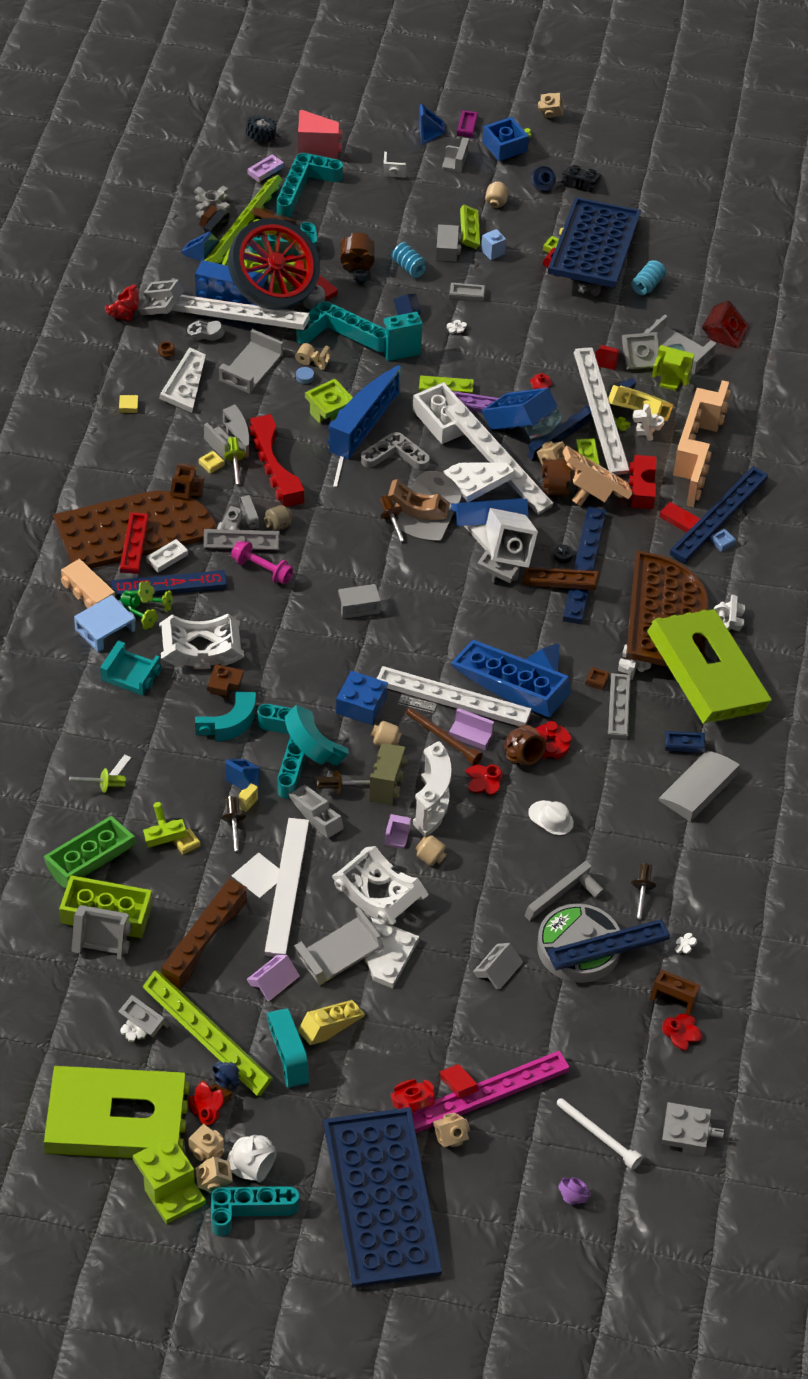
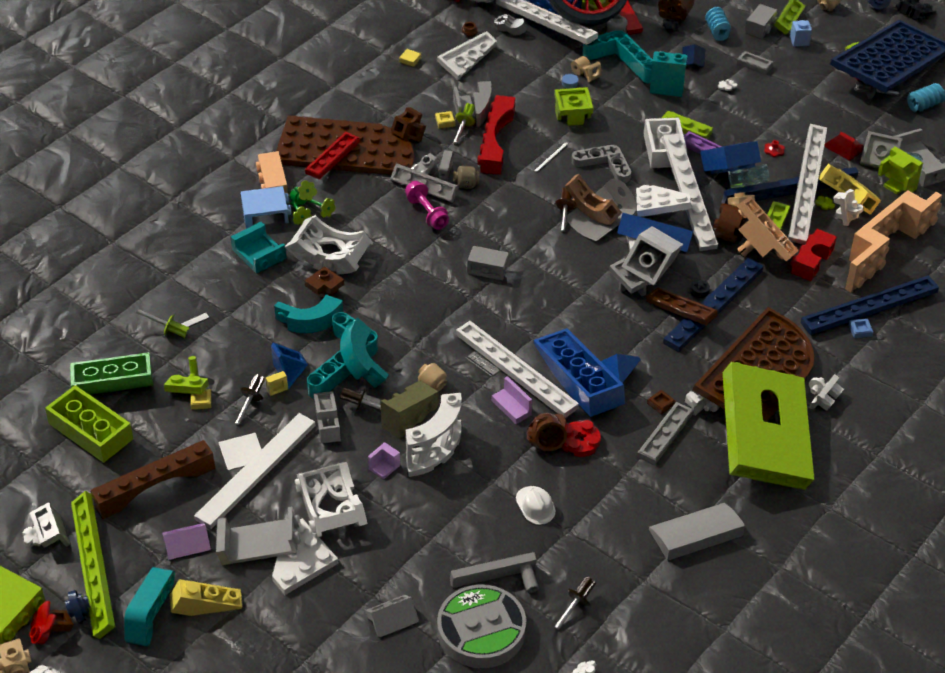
camera: 30 degrees right, 5 degrees down
(101, 930) = (66, 439): light grey panel -> none
(167, 555) = (354, 175): white plate -> none
(175, 583) = (348, 198): dark blue tile -> none
(252, 362) = (532, 60): light grey panel -> none
(361, 697) = (433, 339): blue brick -> none
(363, 413) = (595, 120): blue slope -> none
(431, 850) = (401, 488): tan head -> none
(472, 755) = (498, 422): reddish brown piece -> none
(483, 780) = (496, 447): red plate -> none
(608, 944) = (503, 637): dark blue tile -> none
(678, 517) = (829, 294): red tile -> none
(684, 741) = (707, 486): dark blue plate -> none

